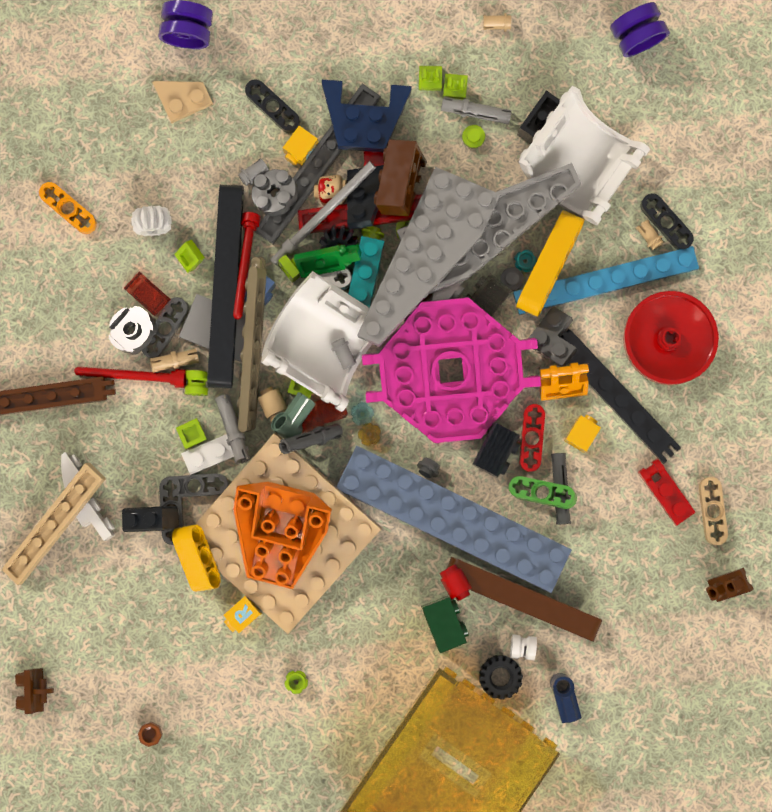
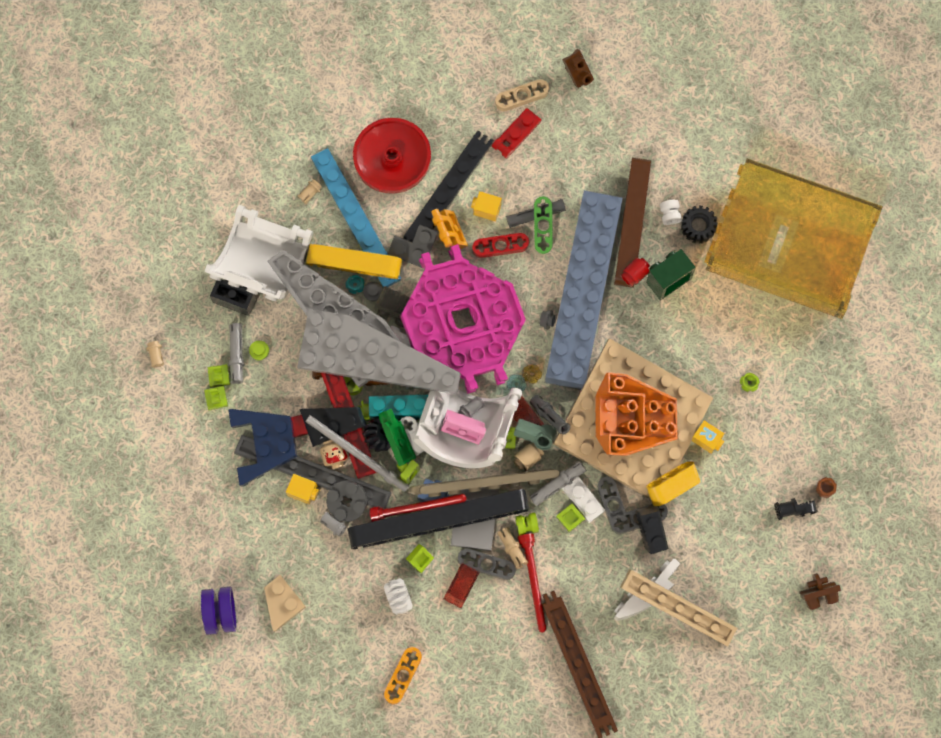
camera: 100 degrees left, 10 degrees down
(136, 687) = (792, 508): none -> black connector
(142, 335) = (500, 600): plate -> none
(255, 99) = (258, 533): black beam -> none
(320, 336) = (463, 427): none -> bright pink panel
(398, 177) = (314, 394): reddish brown wedge -> none
(496, 450) = (518, 269): black brick -> none
(566, 699) = (701, 171): dark blue piece -> none
(639, 29) = (139, 235): dark purple wheel -> none
(667, 212) = (298, 167): black beam -> none

